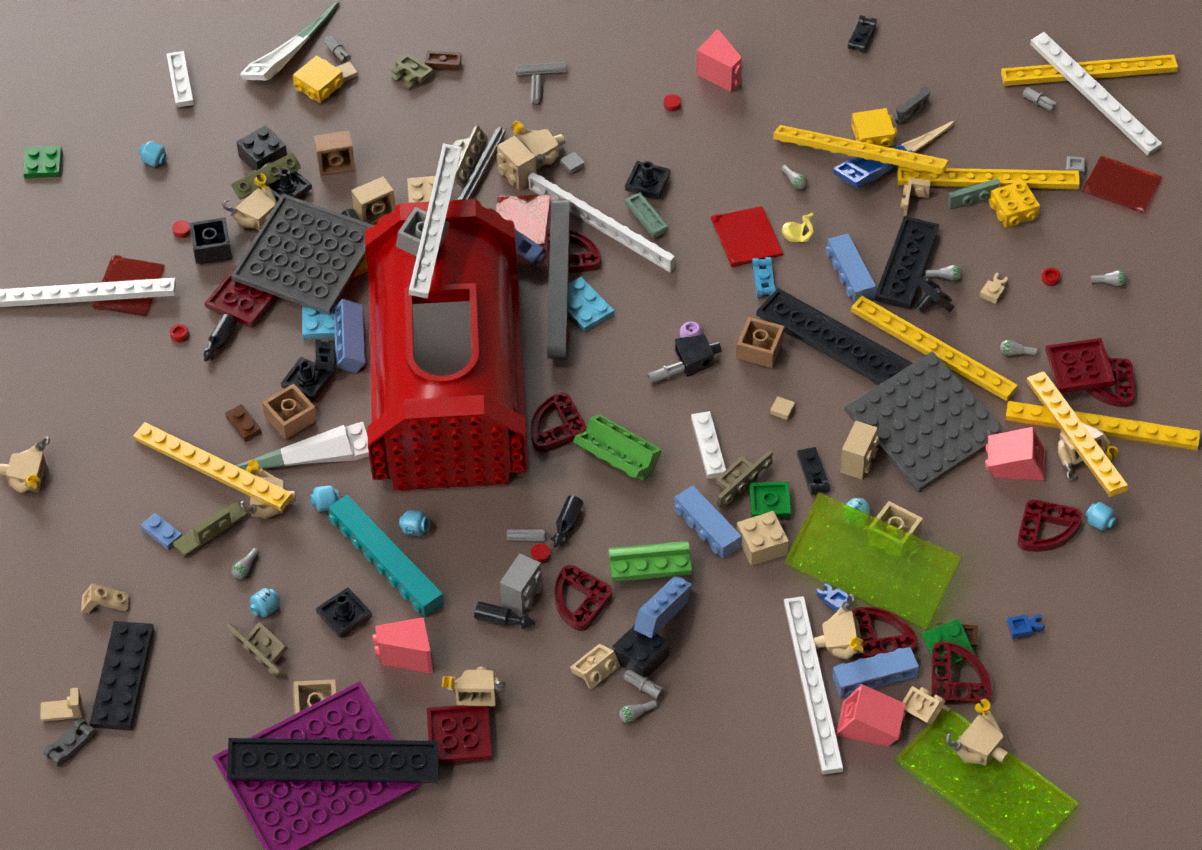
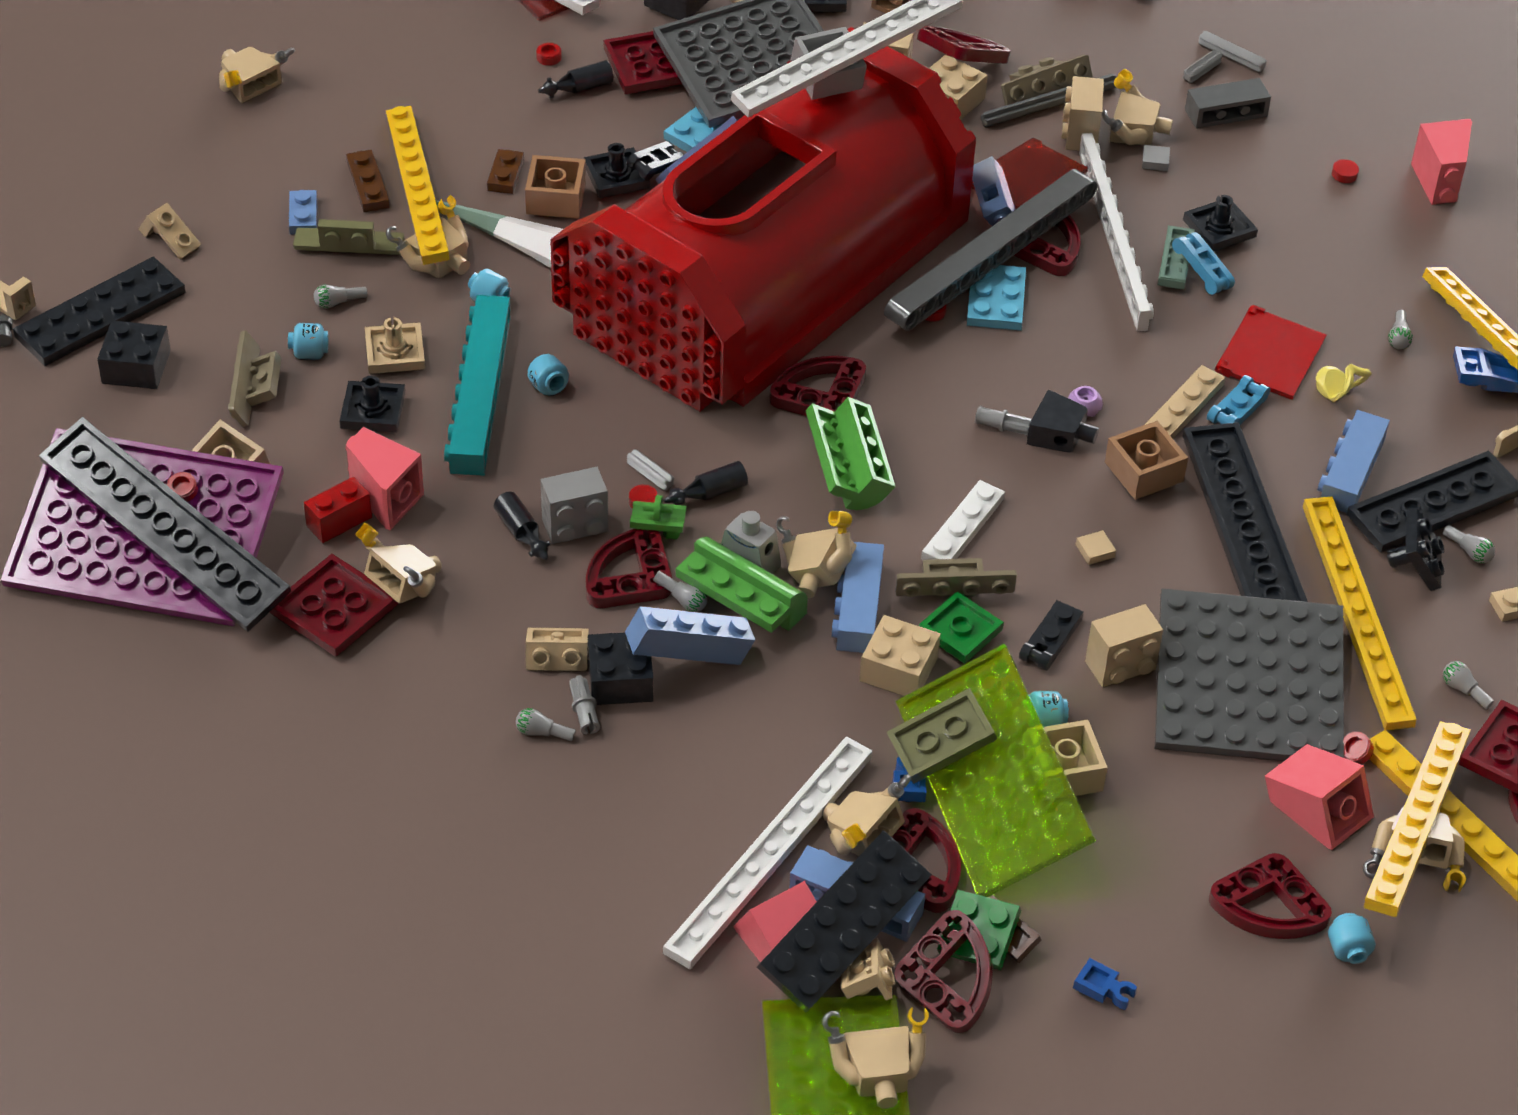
camera: 40 degrees right, 5 degrees down
(173, 485) = (367, 180): none -> reddish brown plate
(181, 684) = (134, 354): none -> black brick
(314, 571) = (394, 342): none -> tan plate
(320, 731) = (184, 485): none -> tile
(400, 682) = (337, 509): none -> red brick
(405, 165) = (963, 45): none -> dark red beam
(565, 557) = (659, 517): none -> bright green hips
(574, 103) = (1227, 103): none -> dark grey brick
(627, 533) = (753, 541): none -> light grey torso
(627, 587) = (687, 595): none -> light grey piece
(667, 208) = (1204, 262): none -> dark azure plate
(670, 516) = (818, 556): none -> tan torso
(738, 296) = (1188, 400): none -> tan plate
(834, 562) = (941, 735): none -> olive plate
(895, 689) = (844, 921): none -> black plate
(1006, 419) = (1357, 747): none -> tile

